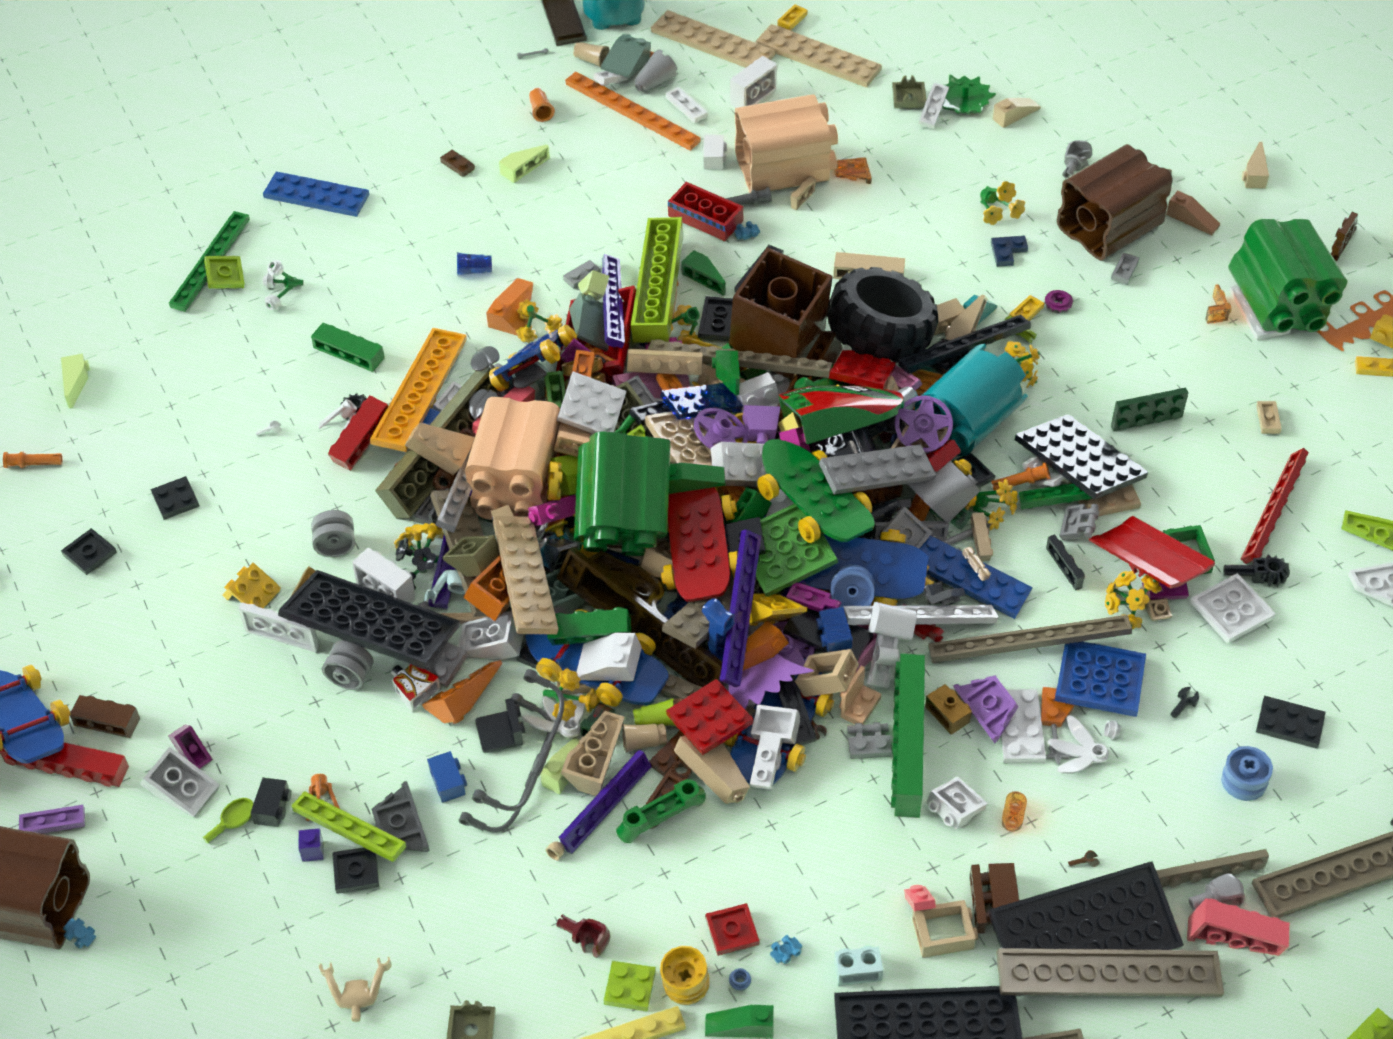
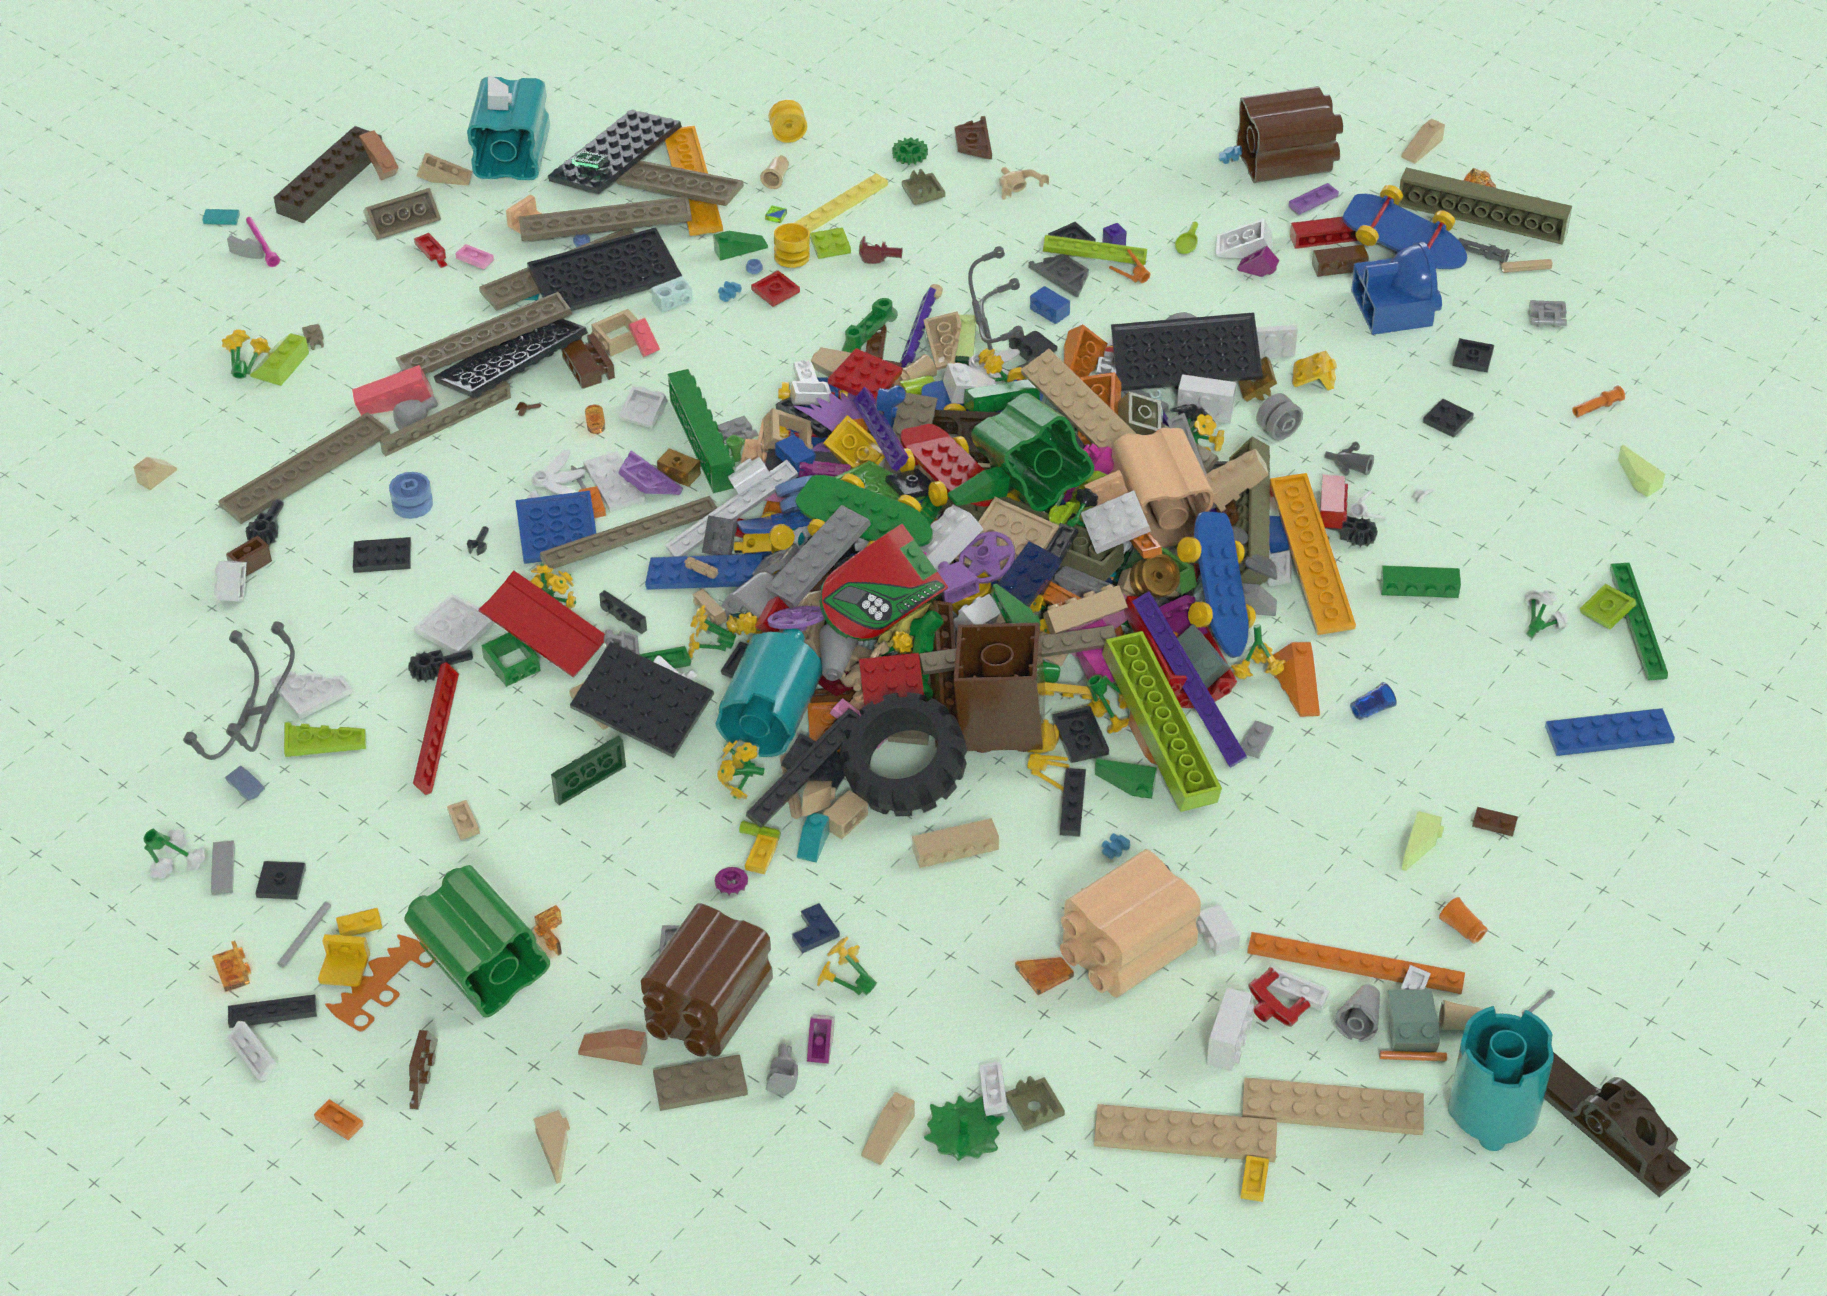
camera: 155 degrees right, 5 degrees down
(94, 632) = (1398, 290): none -> blue piece
(271, 802) = (1166, 252): black brick -> none
(300, 477) = (1355, 461): none -> dark grey piece
(554, 479) = (1104, 459): yellow plate -> none
(594, 284) = (1225, 698): yellowish green slope -> none
(706, 211) = (1175, 840): red brick -> none
(712, 97) = (1270, 1006): none -> red connector
(883, 698) = (735, 444): none -> bright green piece
(1030, 475) = (685, 664): orange pin -> none
(1037, 173) = (820, 1038): none -> magenta slope

